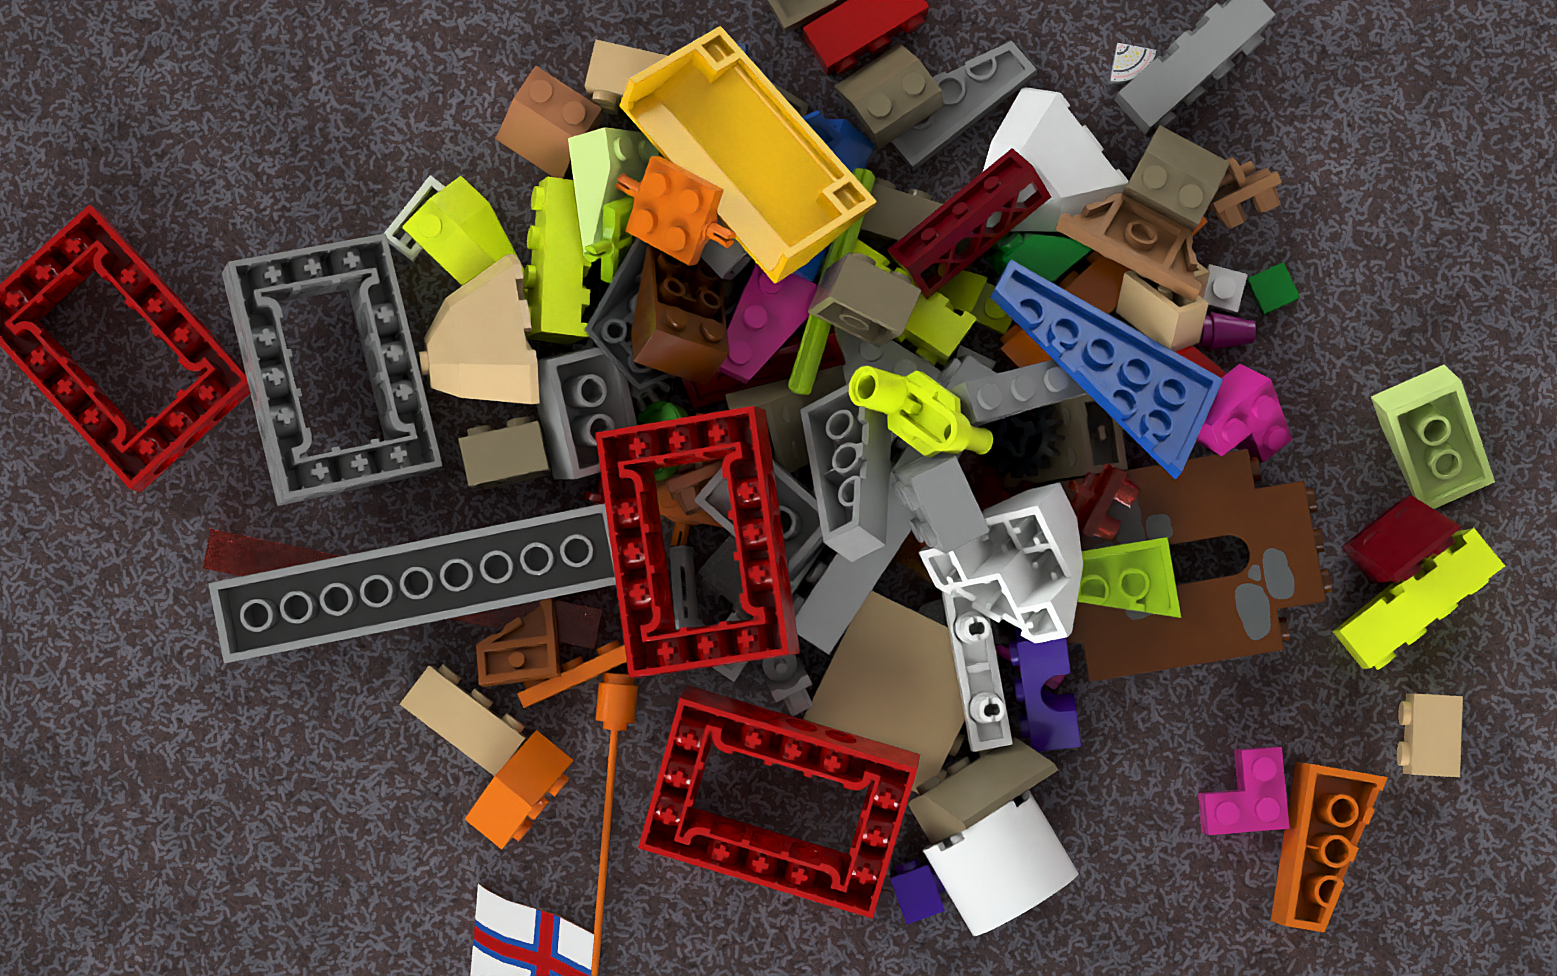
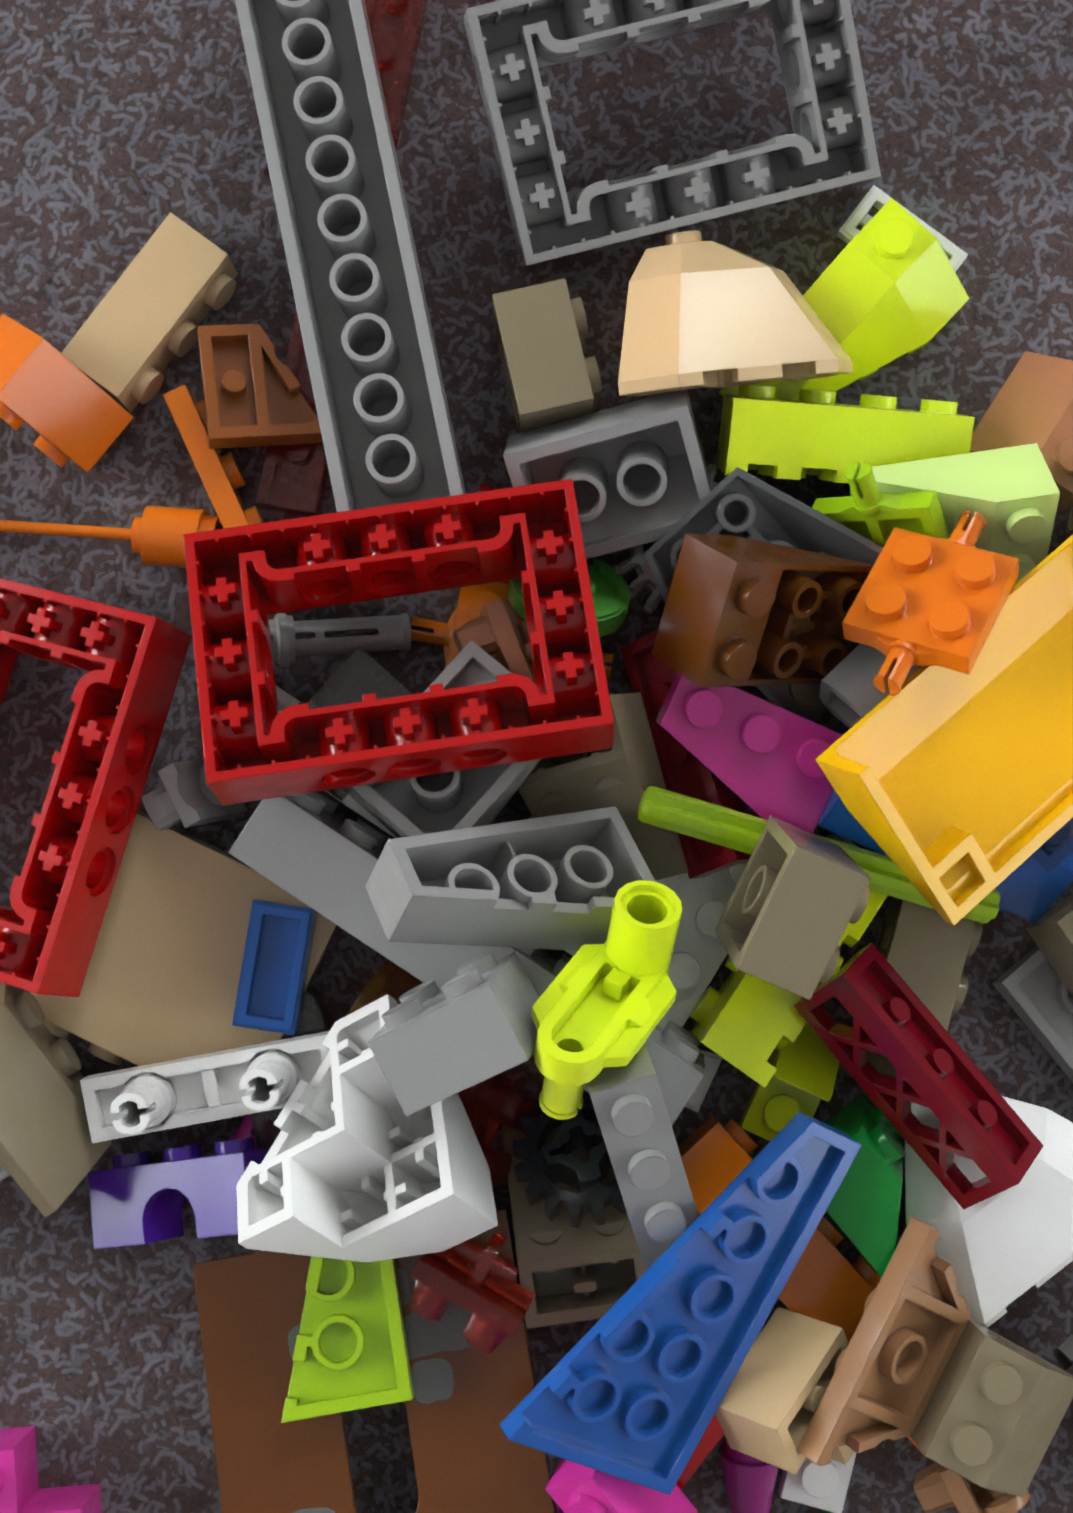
camera: 90 degrees right, 0 degrees up
(901, 630) = (274, 967): none -> blue tile

